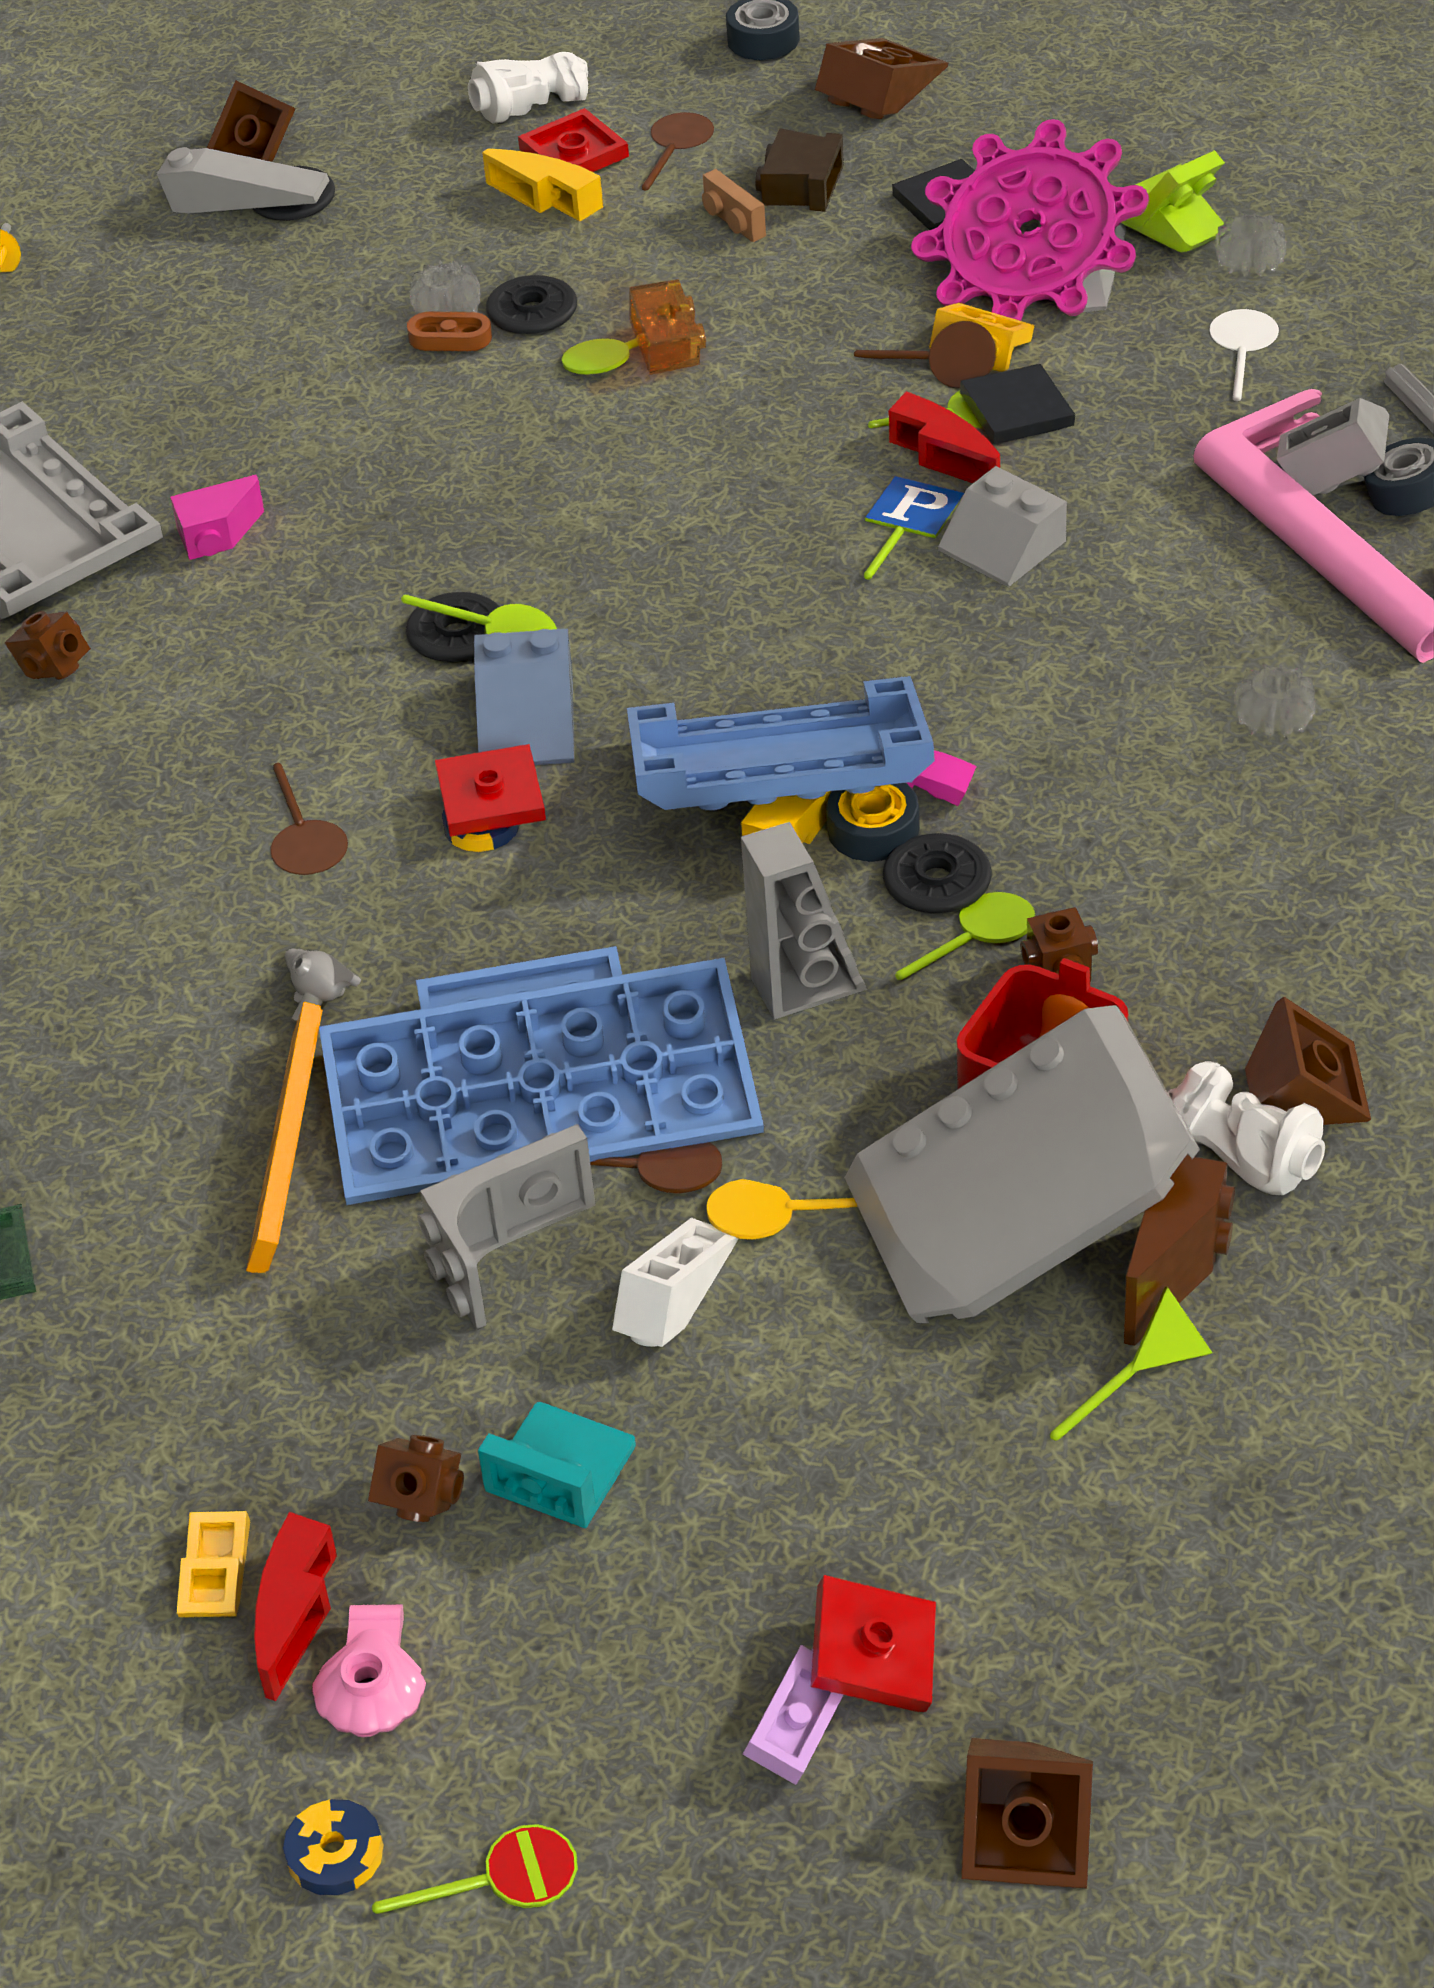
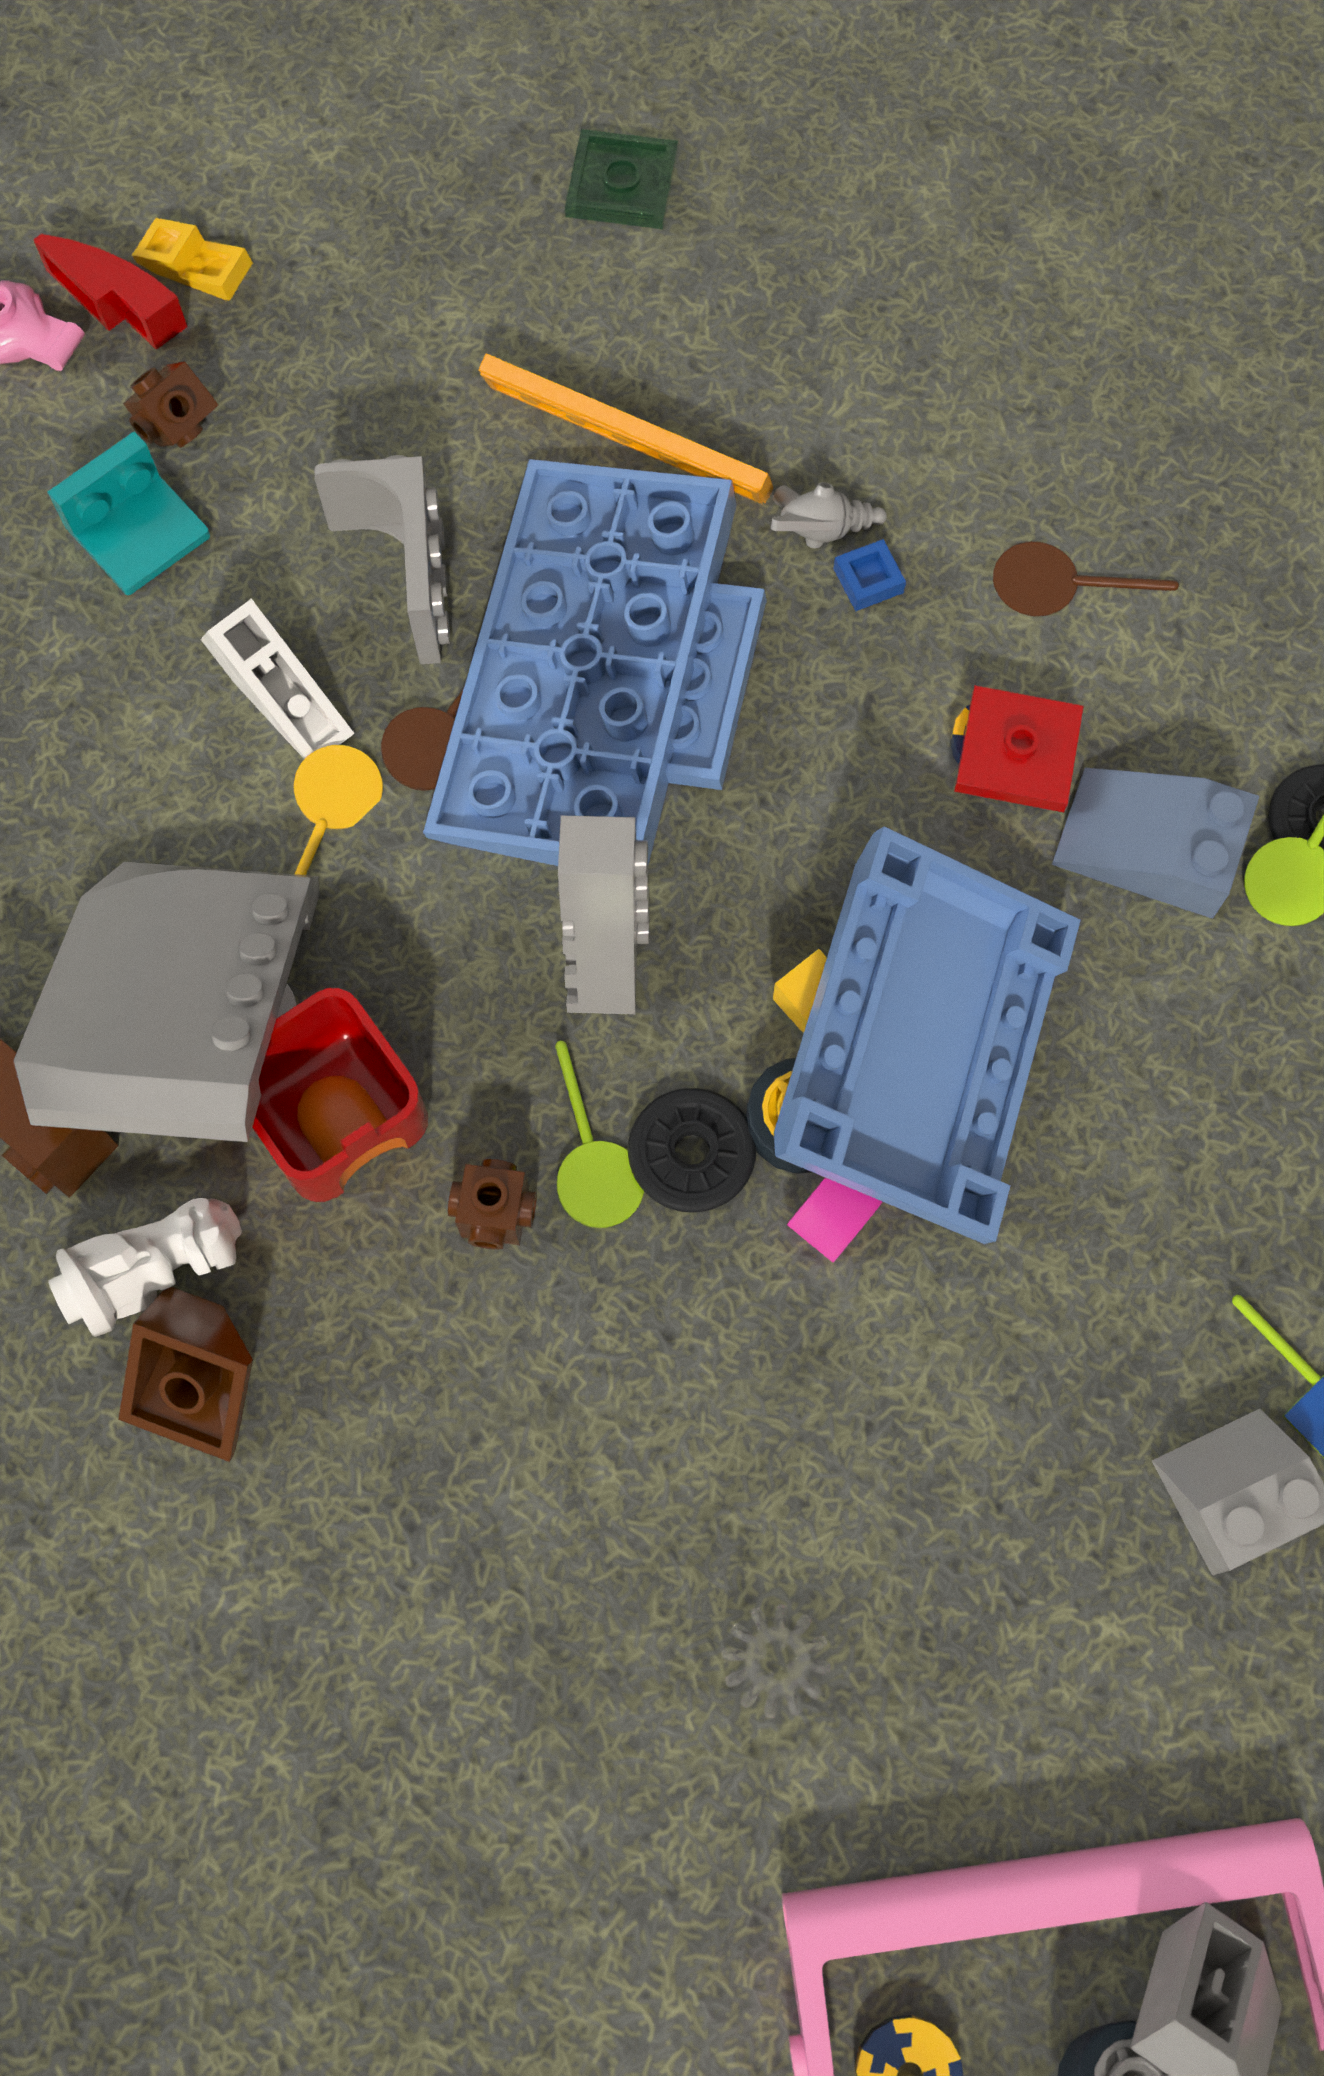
camera: 110 degrees right, 25 degrees up
(362, 933) = (869, 575): none -> blue plate

